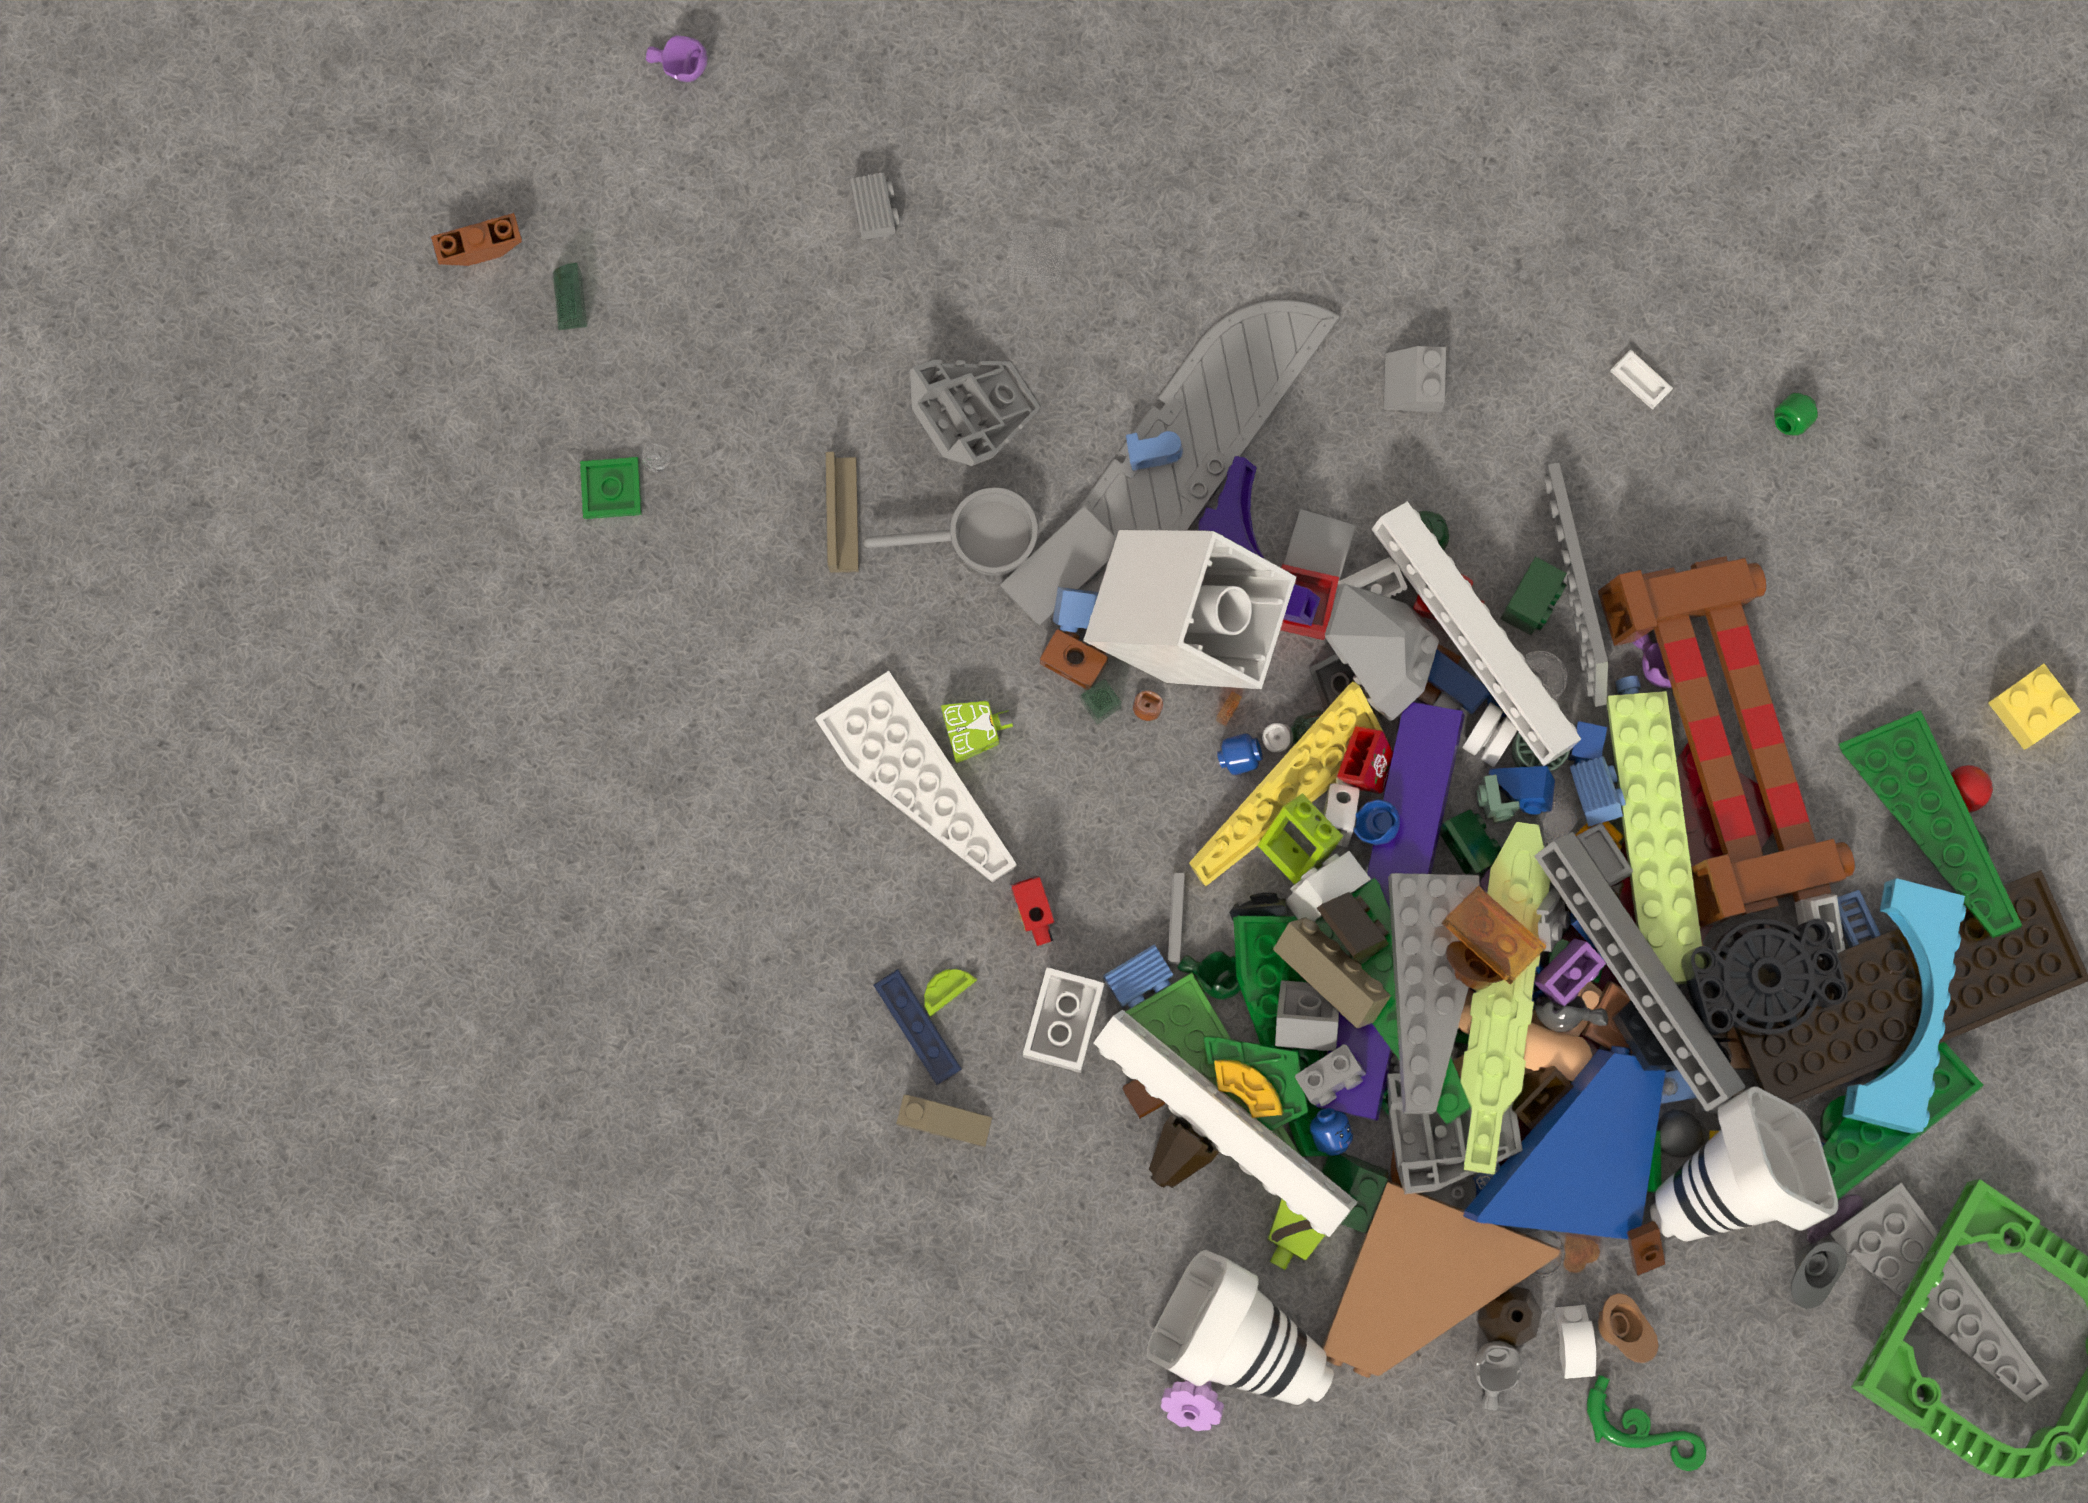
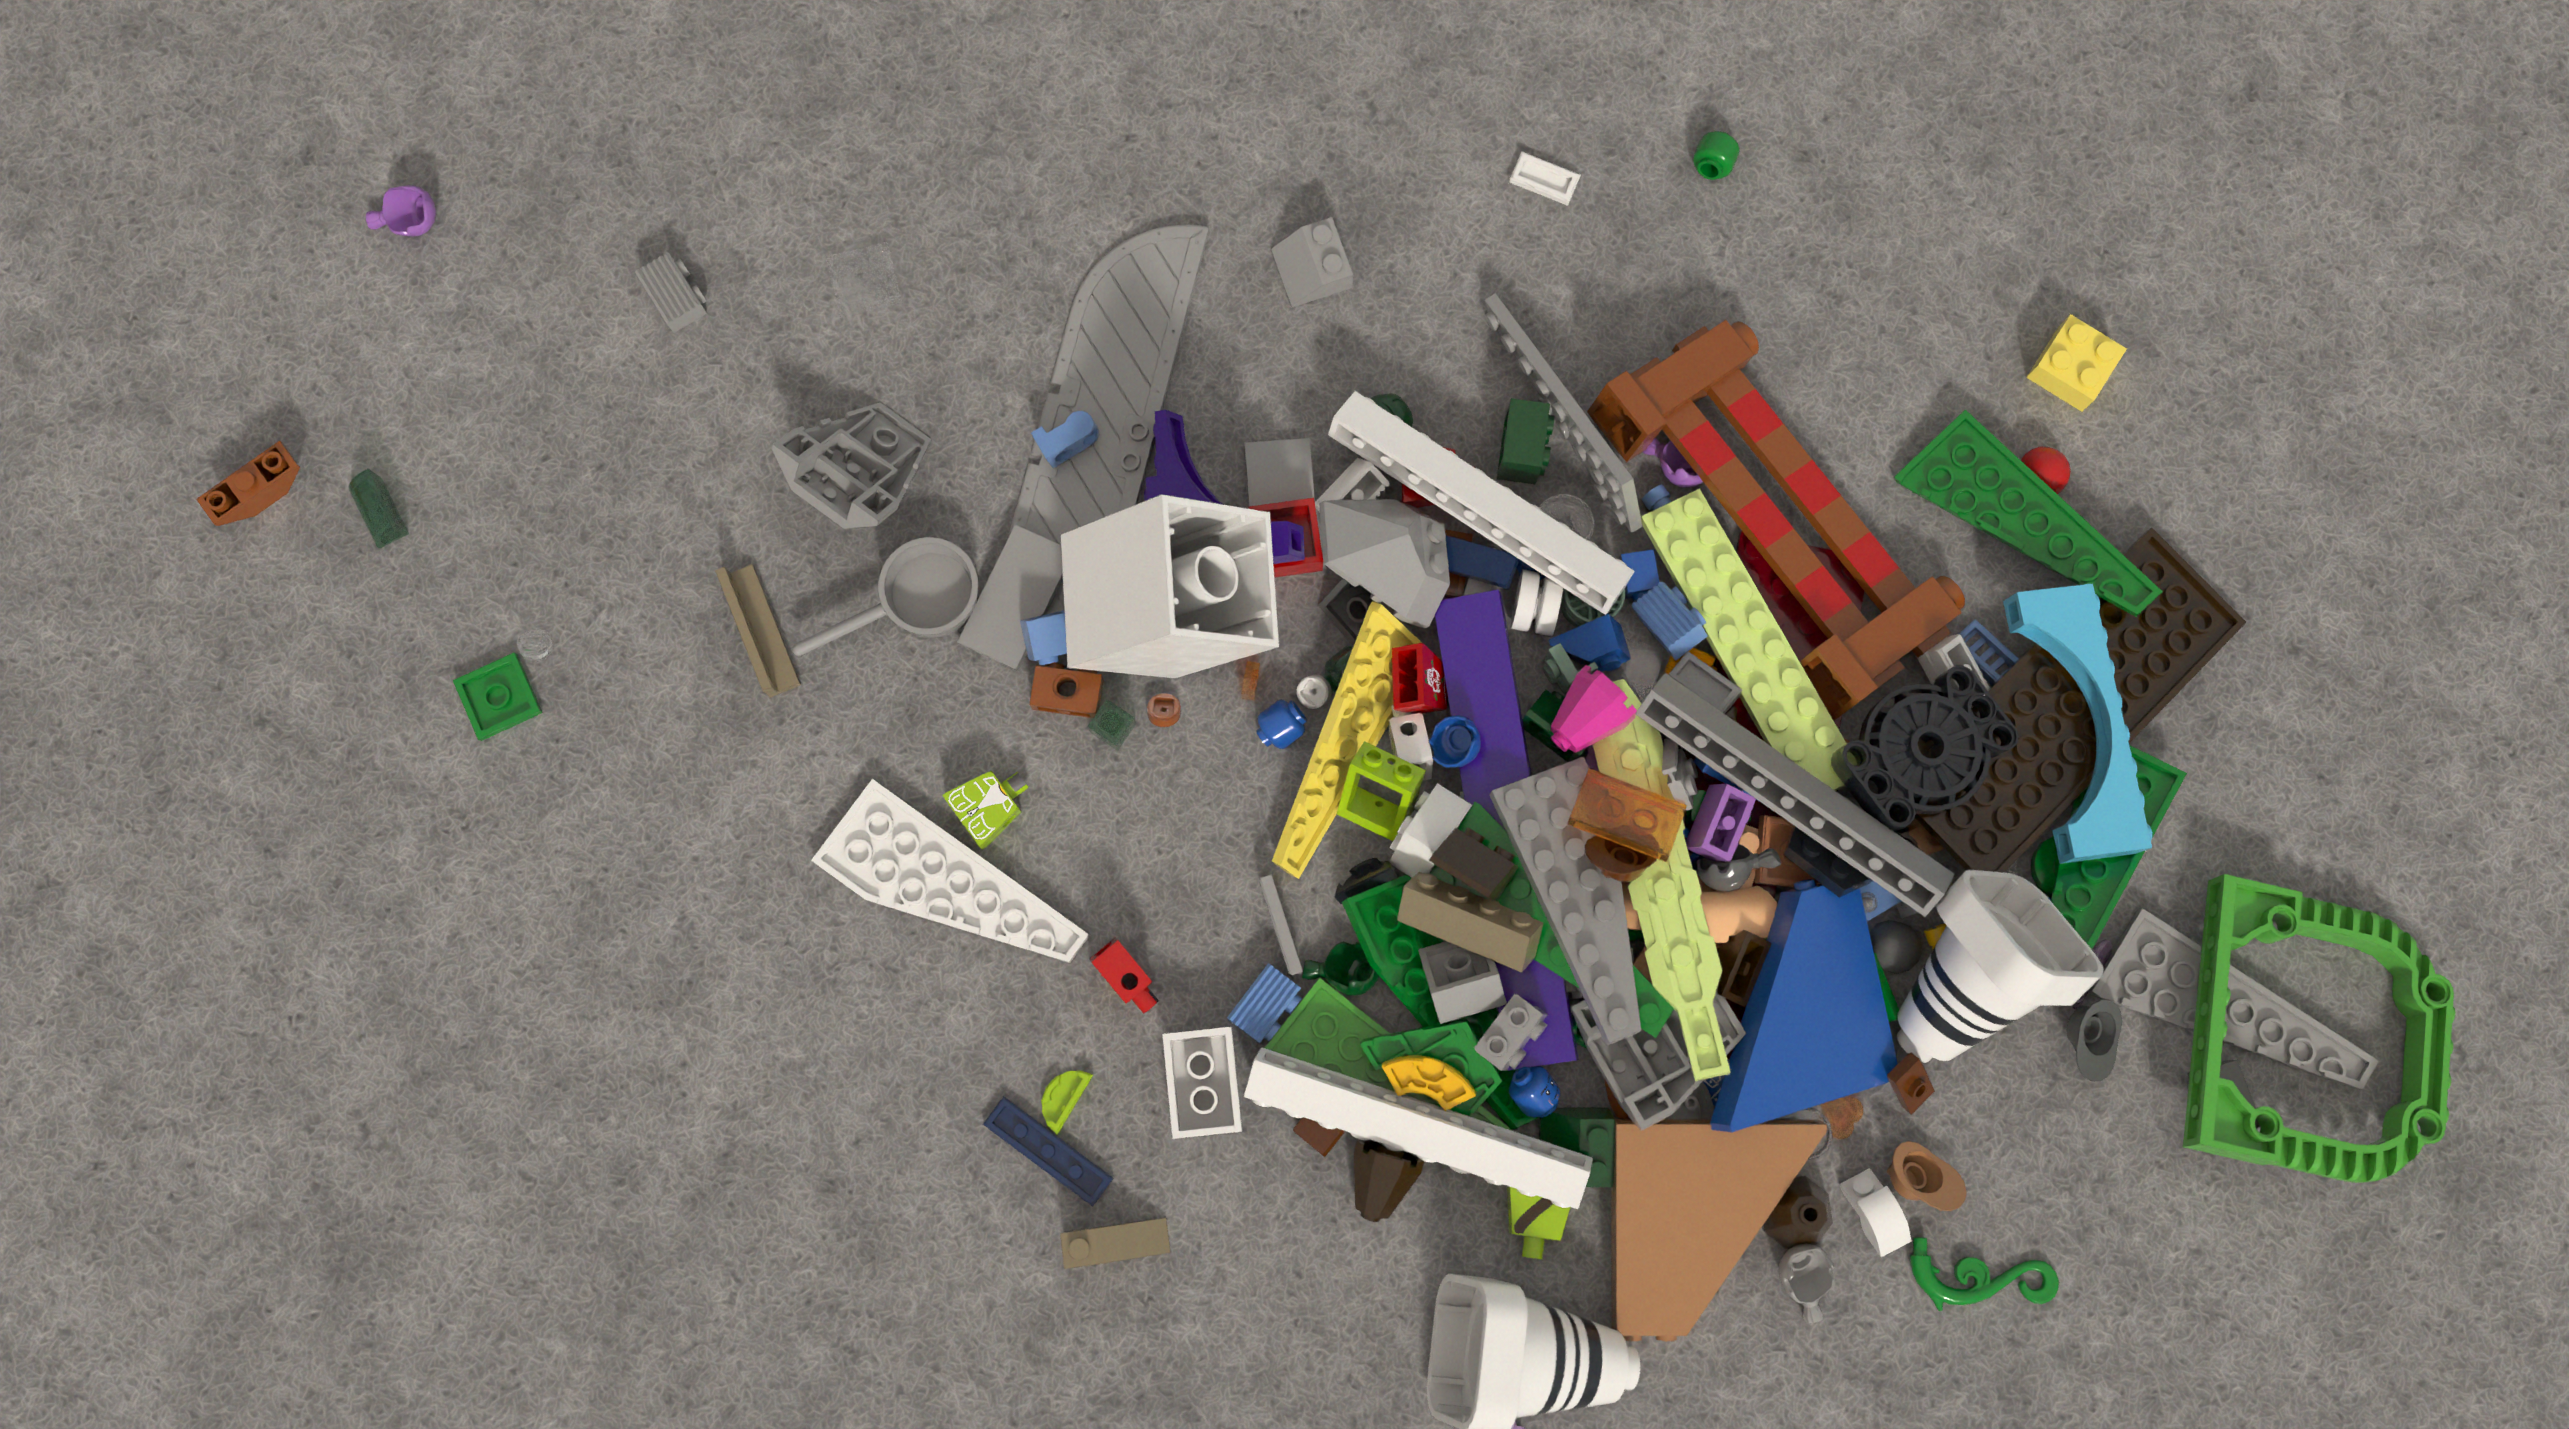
camera: 25 degrees left, 0 degrees up
(1497, 840) = (1590, 711): none -> dark pink cone

